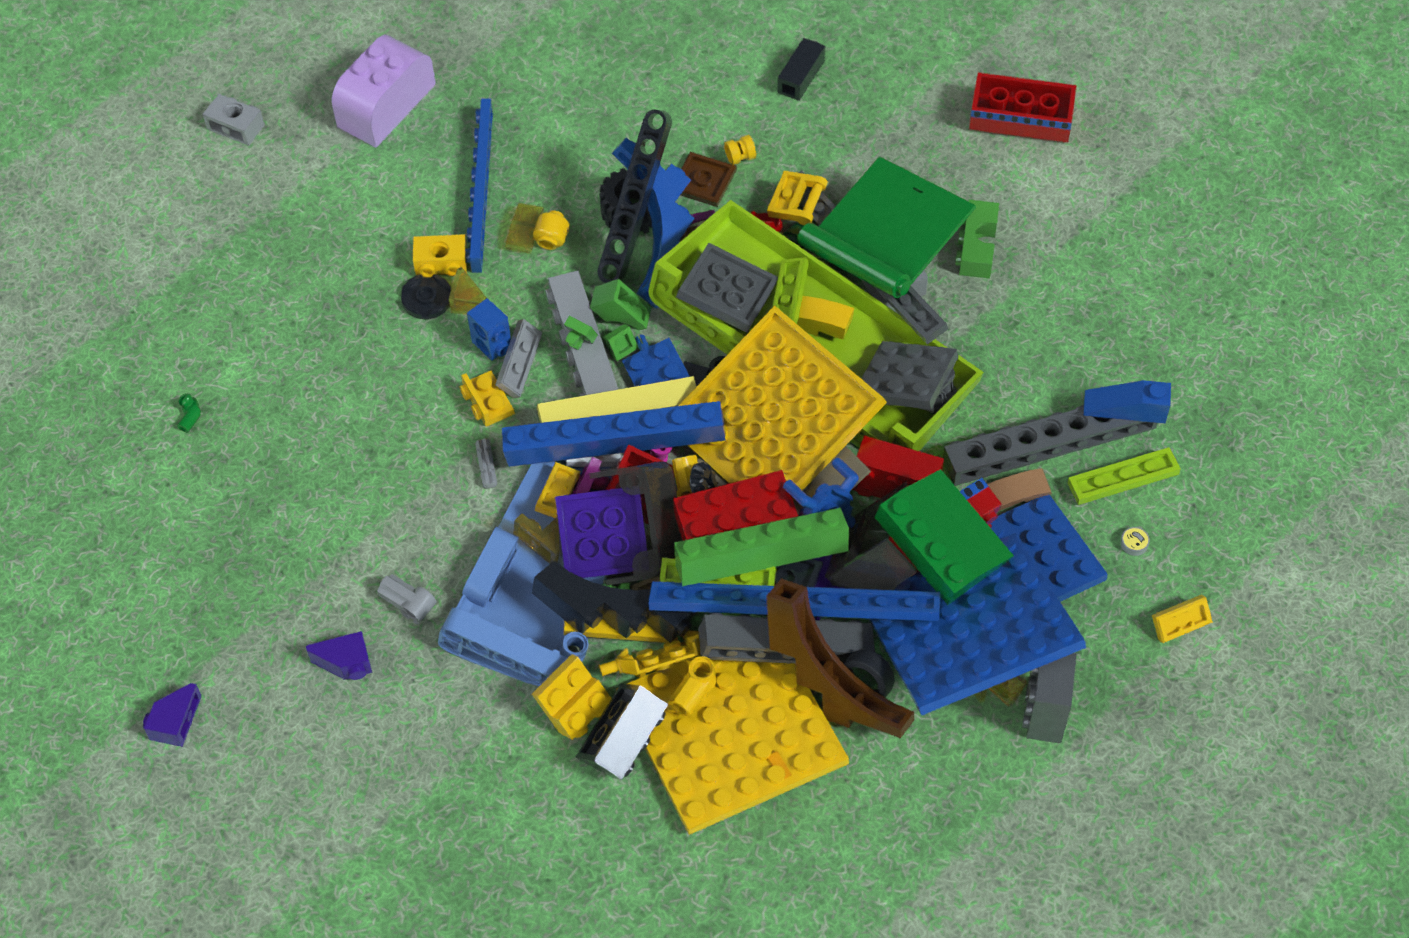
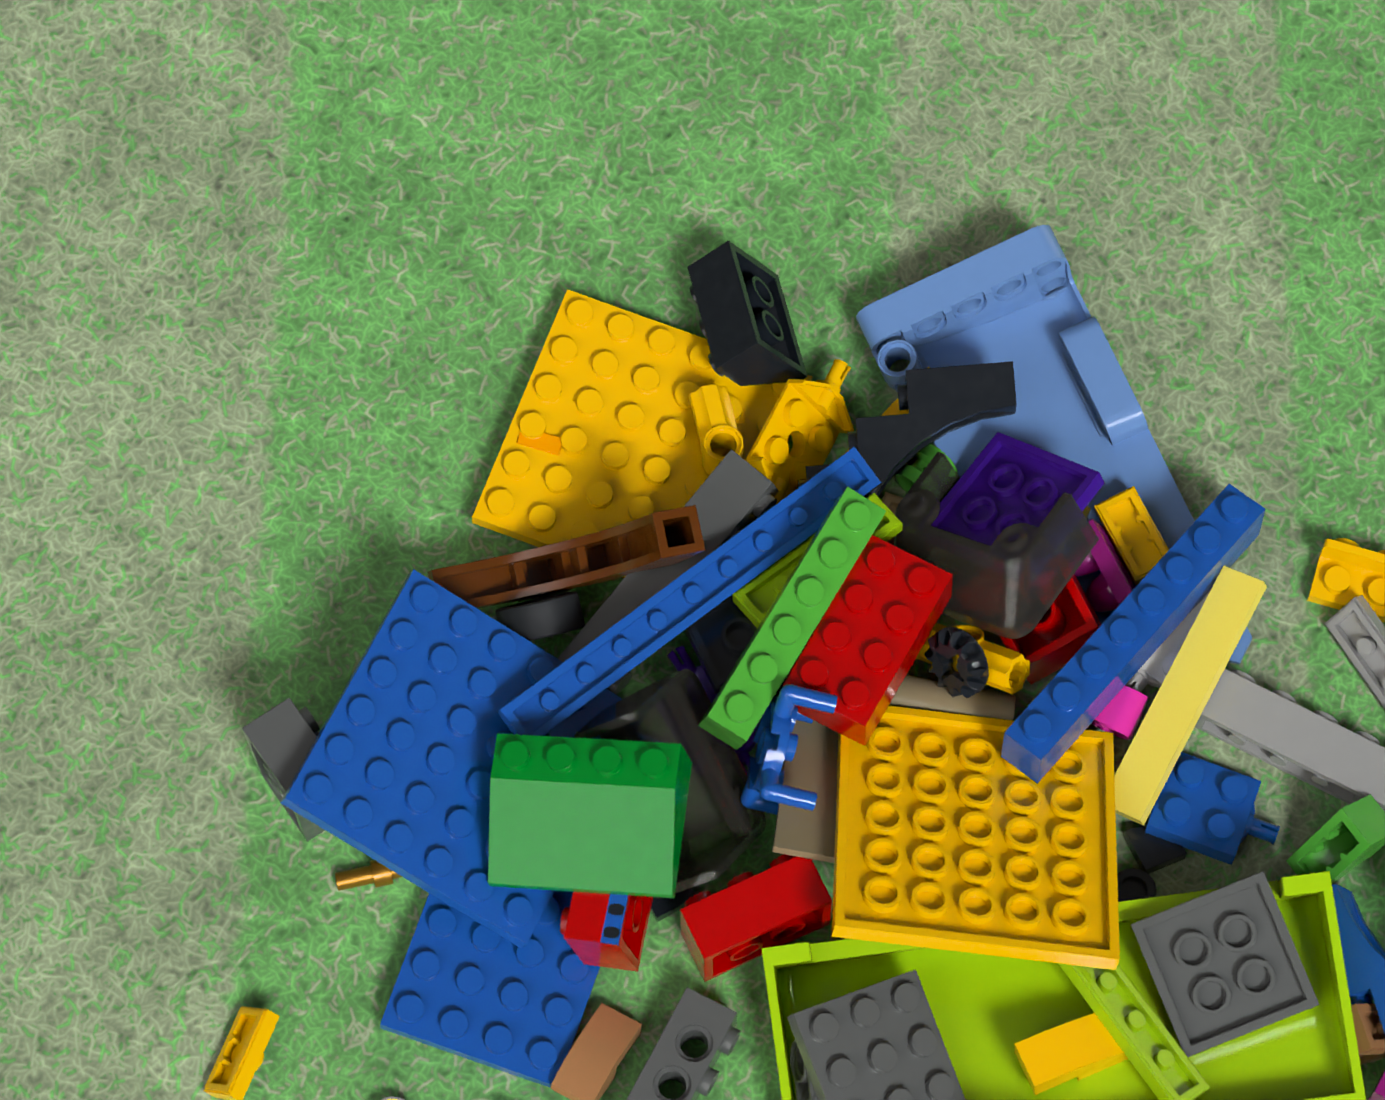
camera: 135 degrees right, 10 degrees up
(342, 656) = (1136, 144): dark purple slope -> none
(411, 602) = (1141, 267): light grey piece -> none
(486, 463) = (1286, 517): light grey axle -> none
(544, 541) = (1102, 451): clear yellow slope -> none
(572, 698) = (837, 307): yellow plate -> none
(578, 333) = (1335, 735): bright green tile -> none
(620, 342) = (1290, 801): bright green tile -> none

